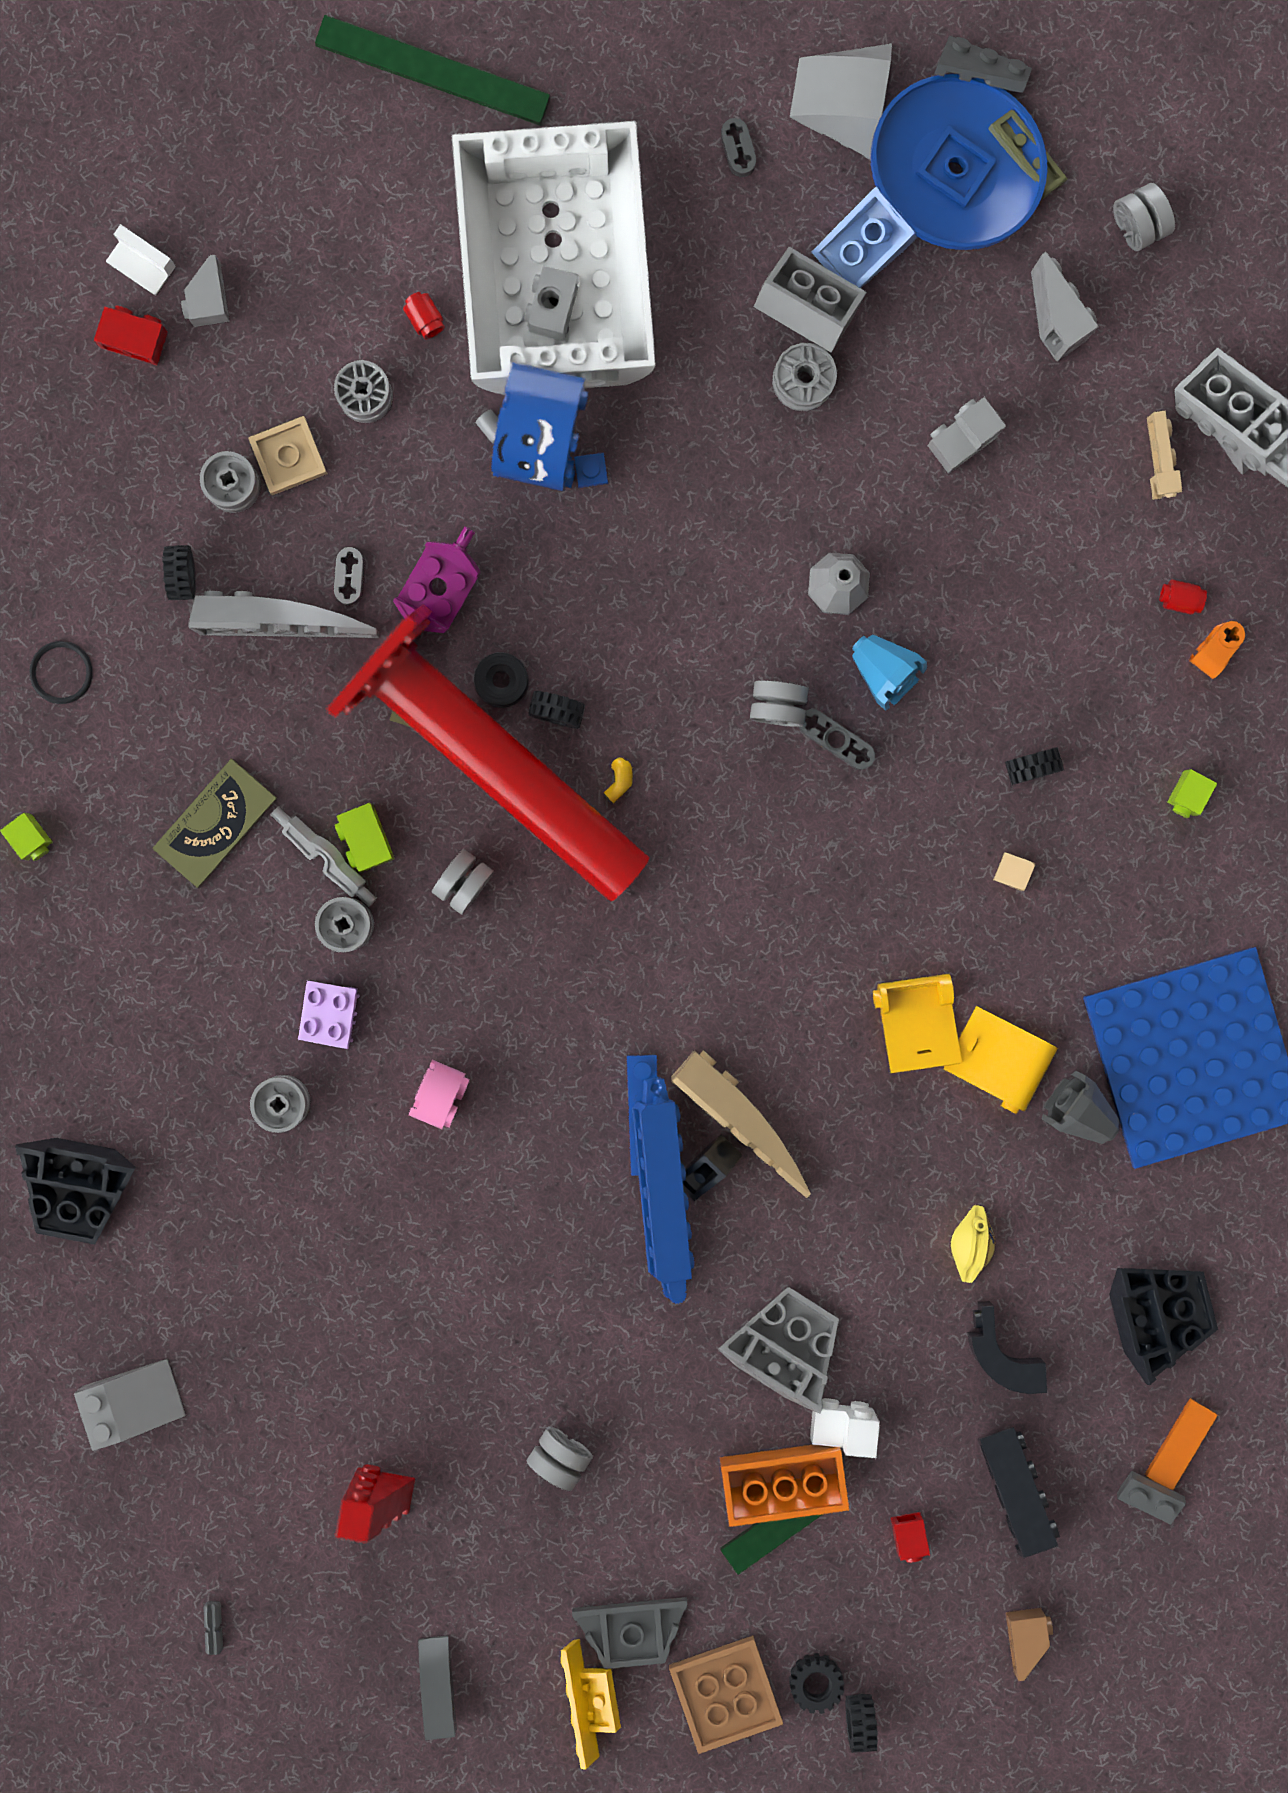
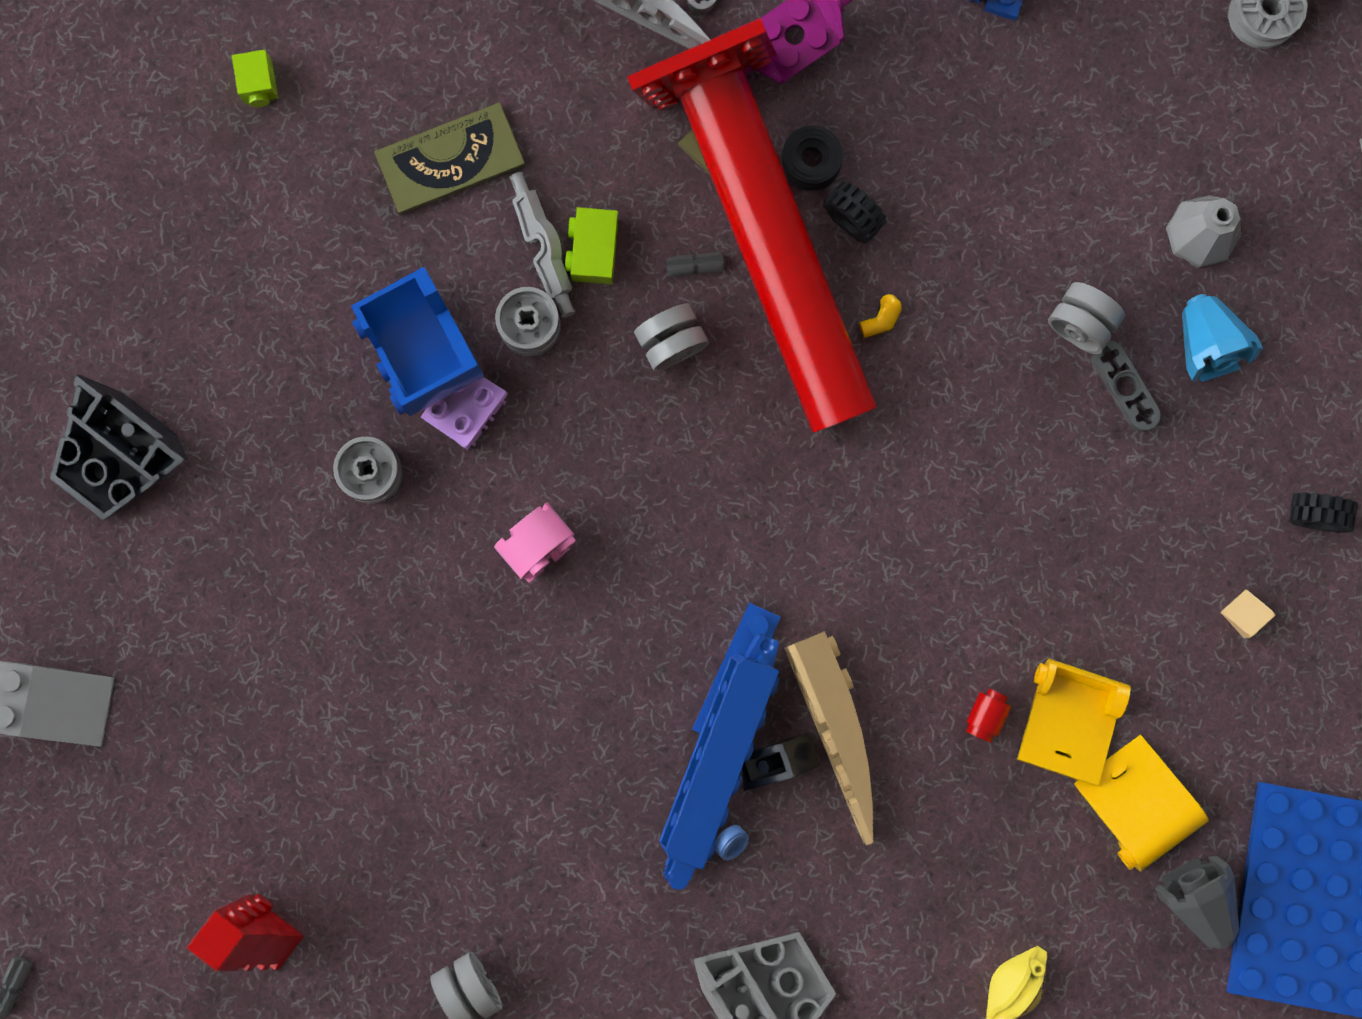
camera: 25 degrees right, 5 degrees down
(268, 987) = (416, 343): none -> blue cylinder
(447, 813) = (687, 264): none -> dark grey piece
(703, 1246) = (731, 842): none -> medium blue tile
(852, 1051) = (988, 715): none -> red brick

